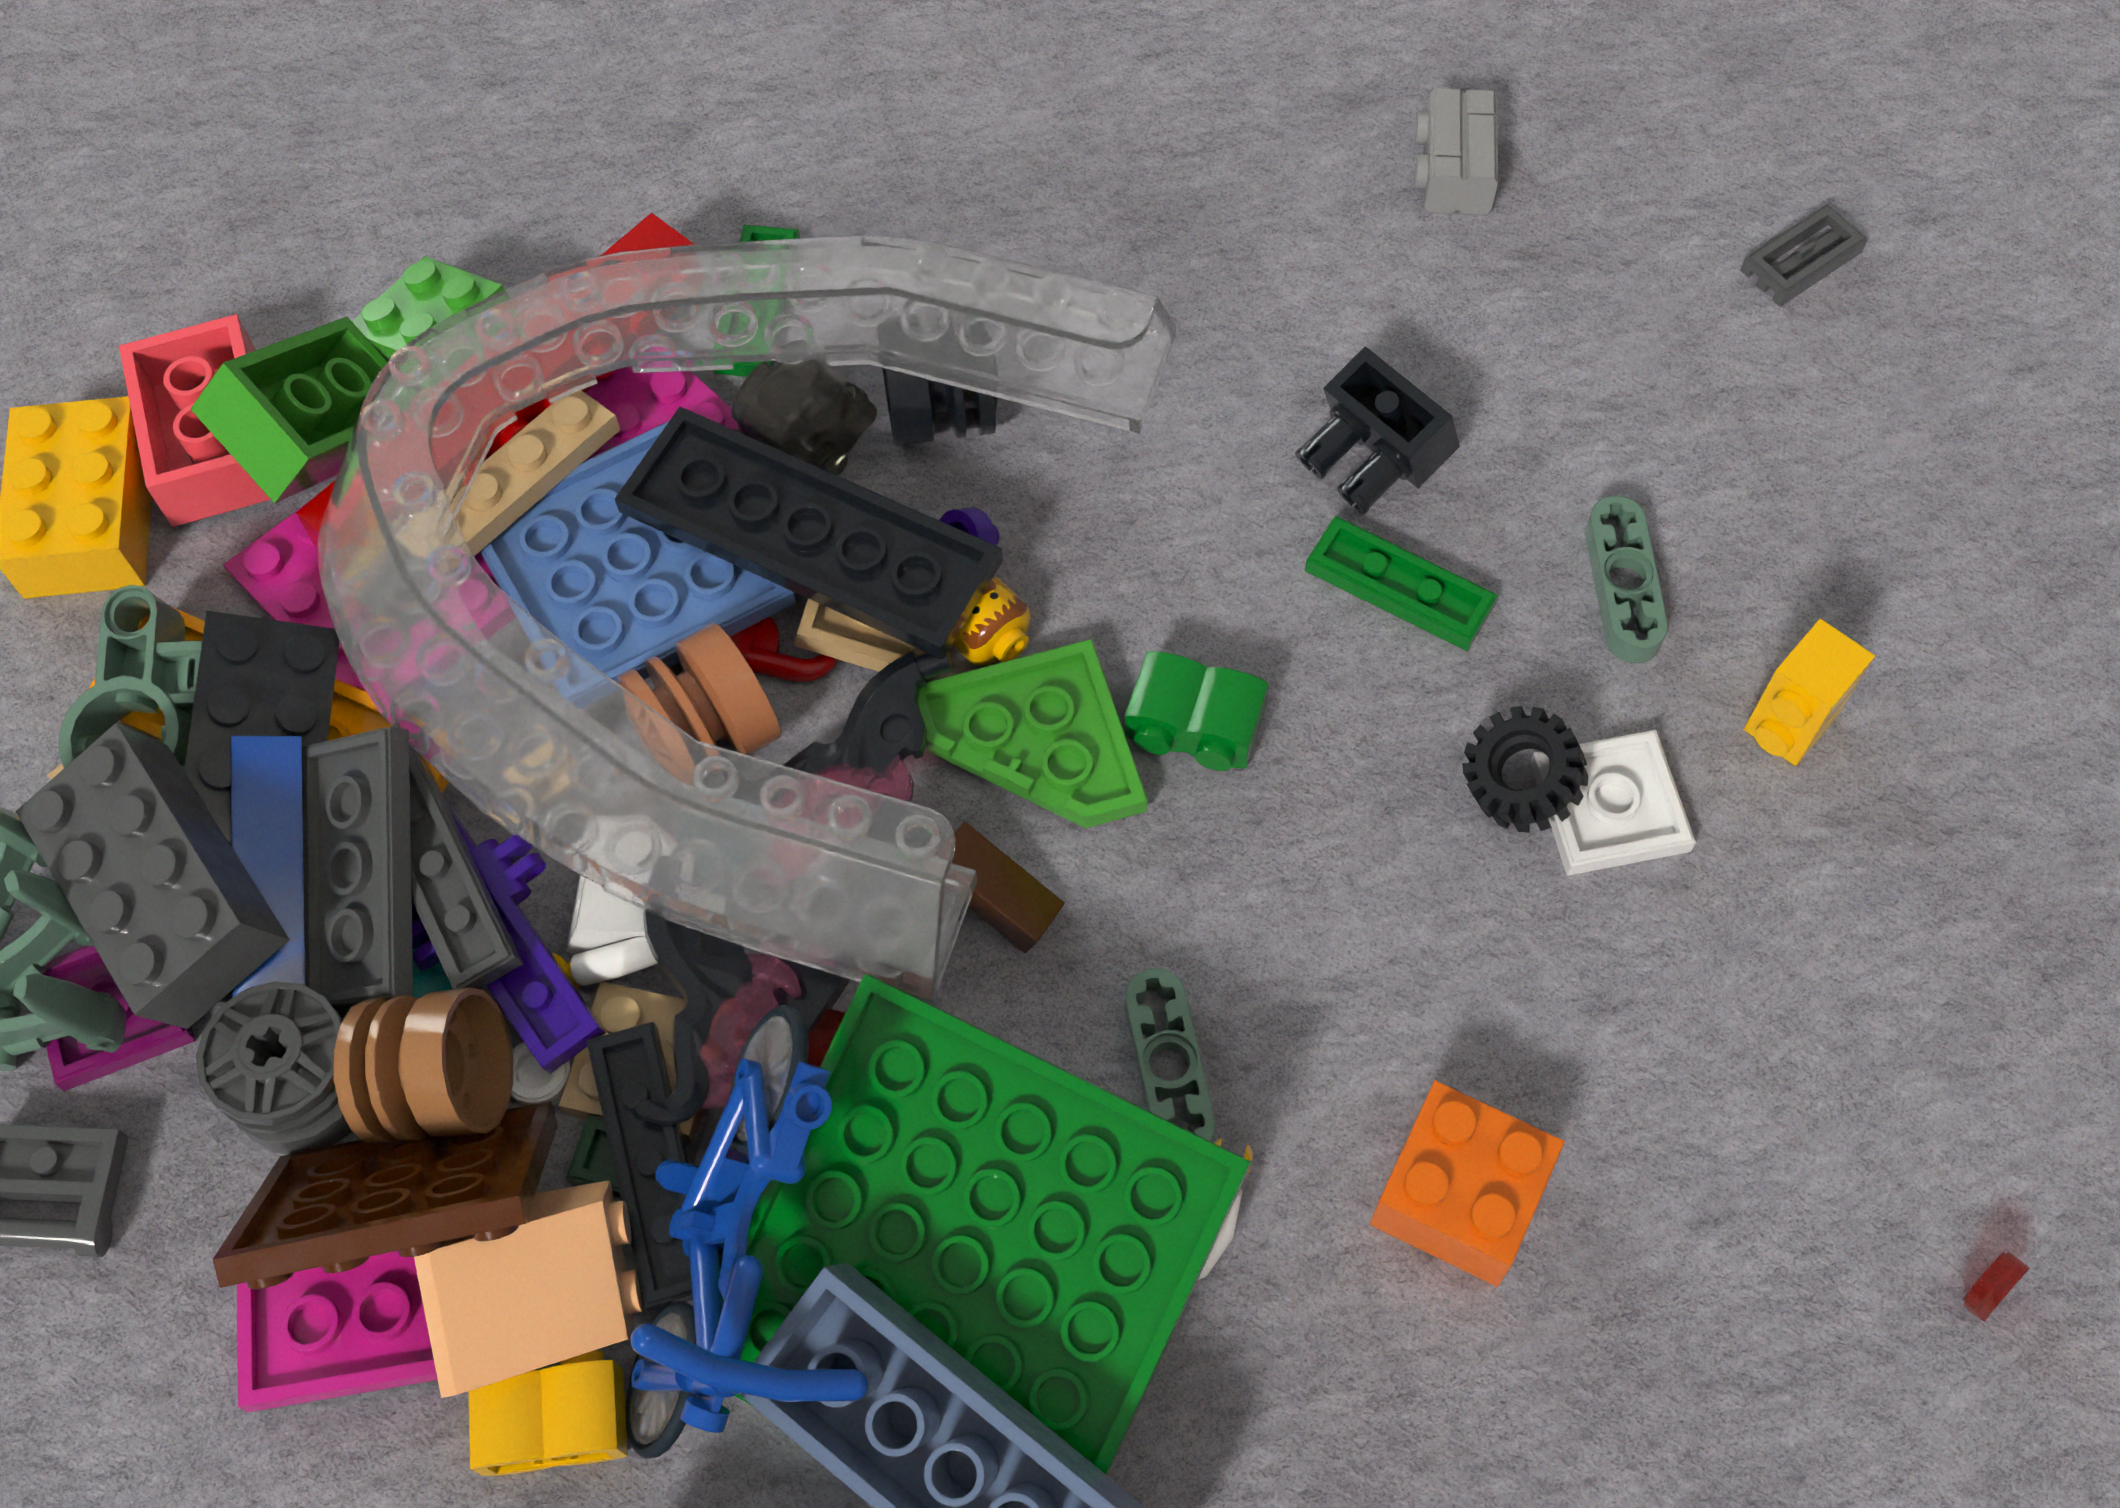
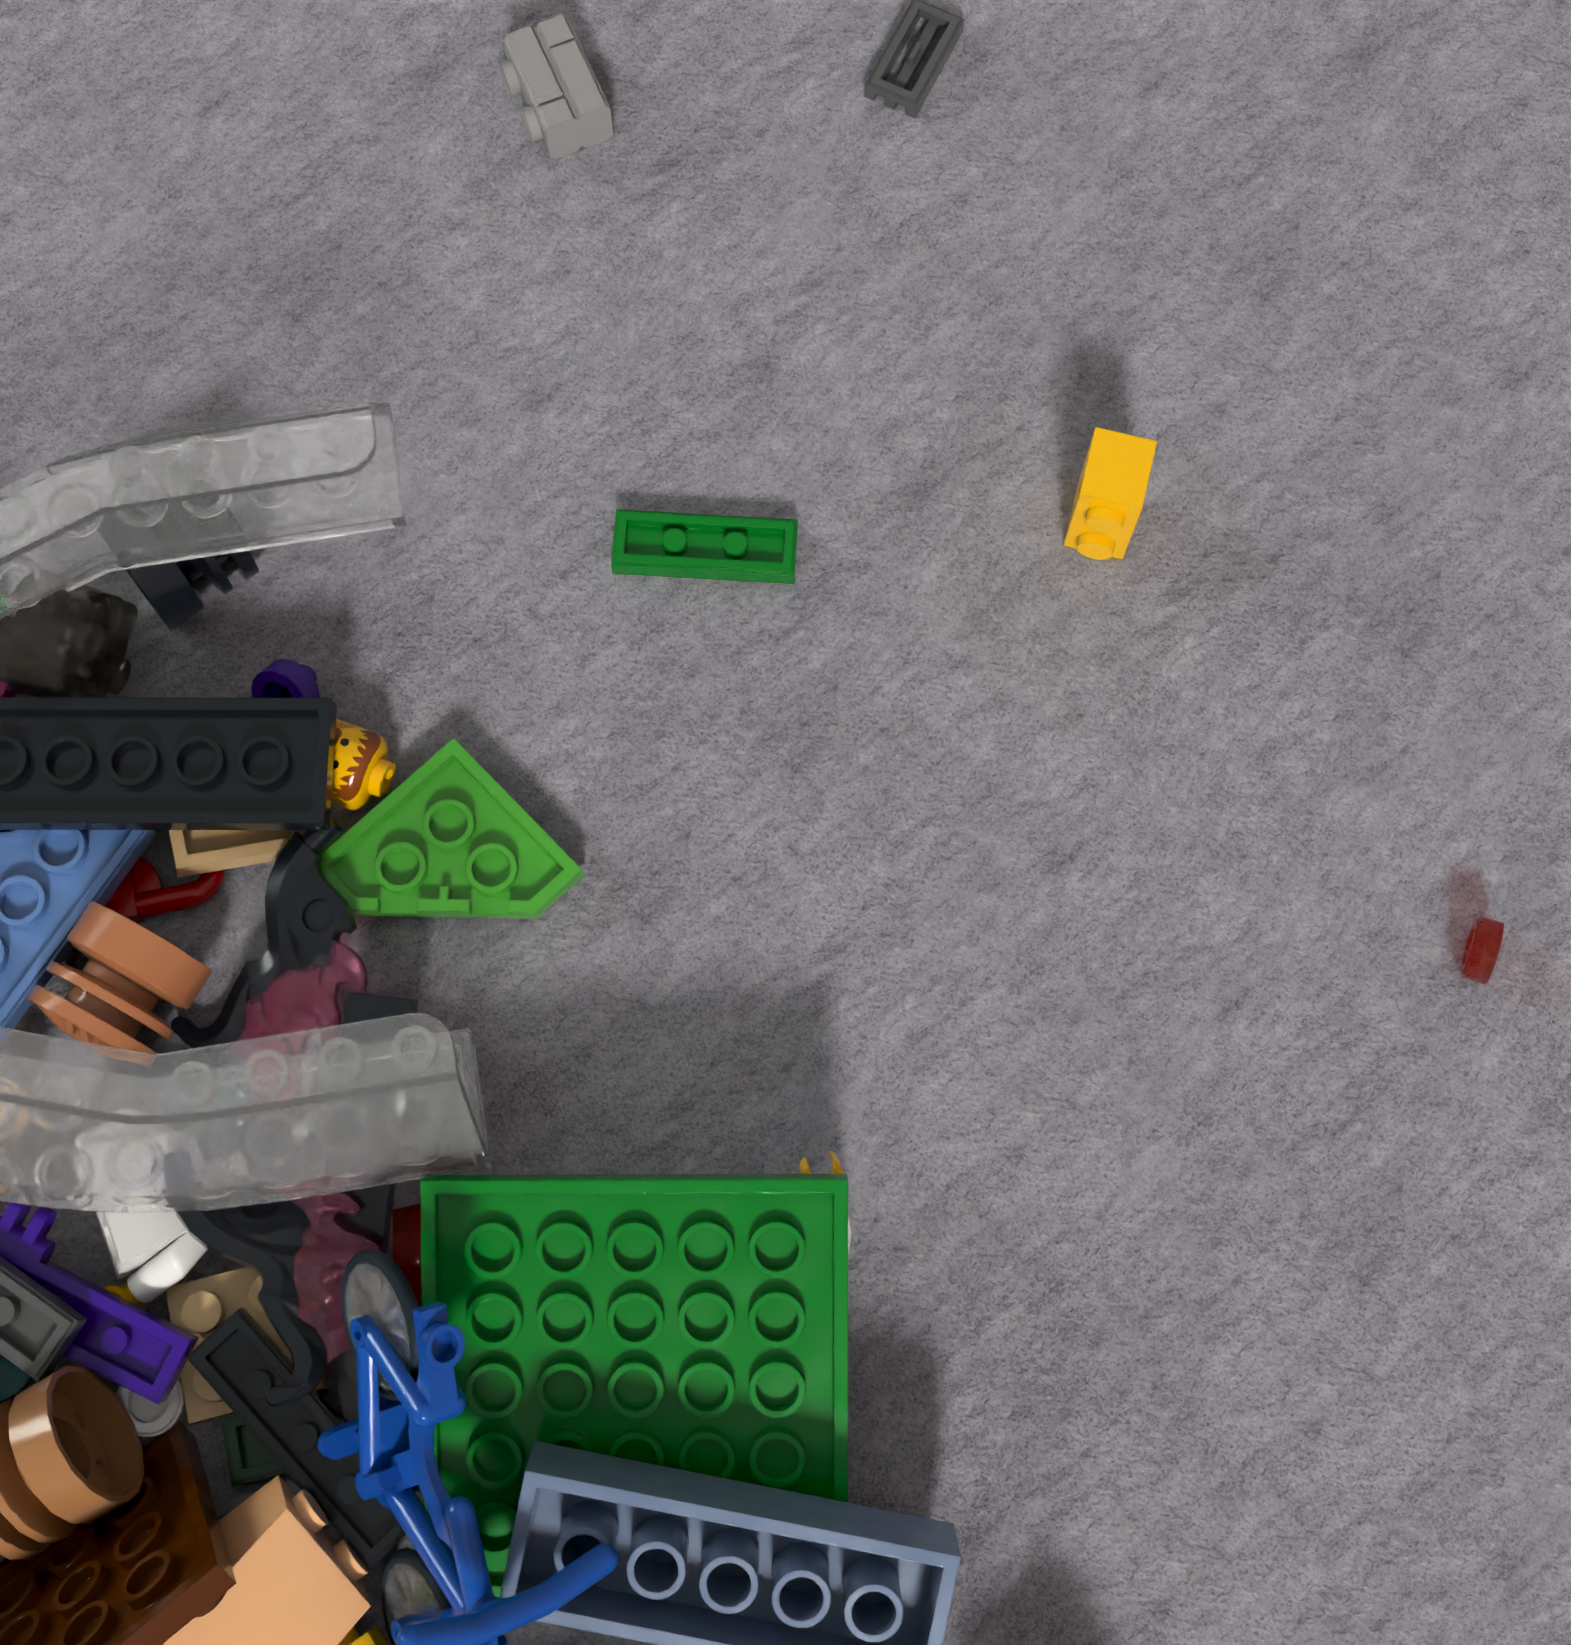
camera: 30 degrees left, 10 degrees up
(1004, 891) = (500, 1017): reddish brown slope -> none
(1177, 1015) = (702, 1053): sand green beam -> none
(1196, 711) = (582, 761): green brick -> none
(1389, 416) = (623, 391): black brick -> none
(1467, 1183) = (1025, 1082): orange brick -> none
(1511, 736) = (868, 659): black tyre -> none
(1617, 602) = (901, 477): sand green beam -> none
(1626, 808) = (984, 669): white tile -> none

